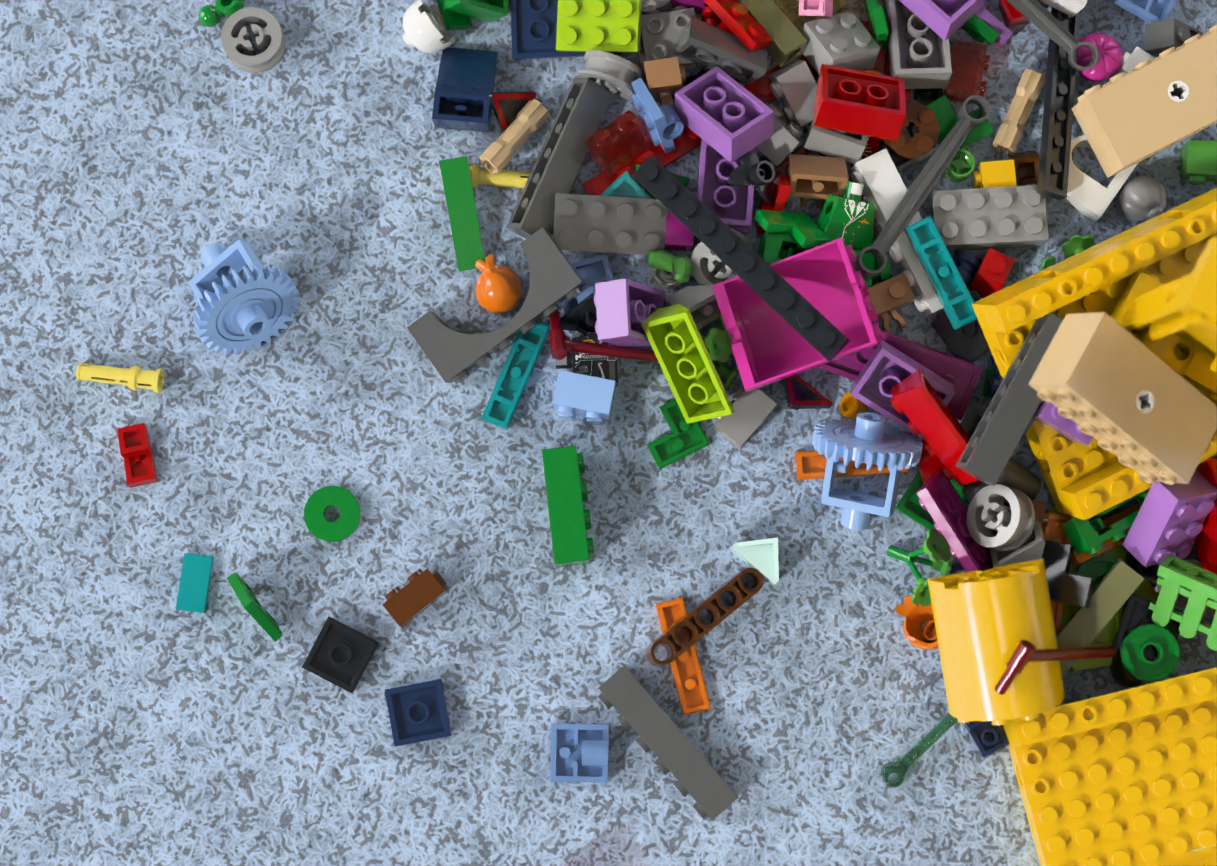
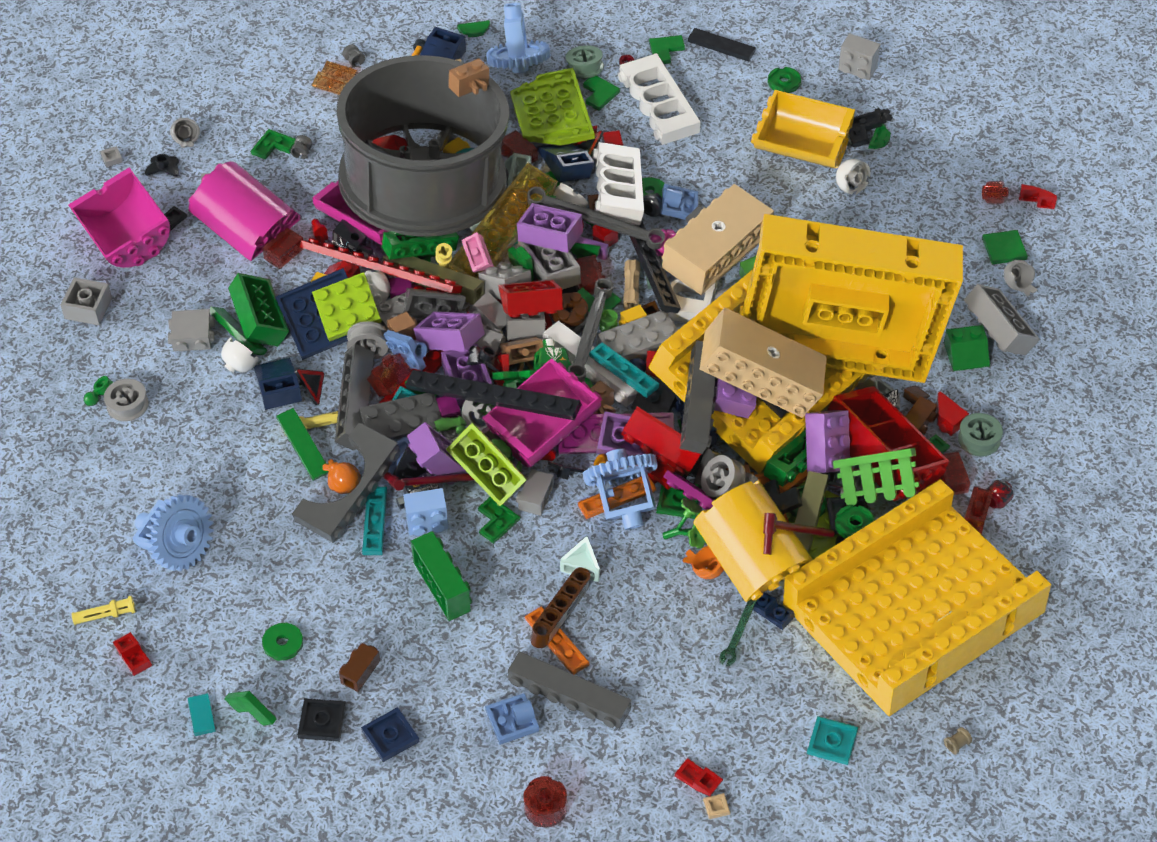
camera: 25 degrees left, 30 degrees down
(503, 149) = (320, 392): tan axle -> none

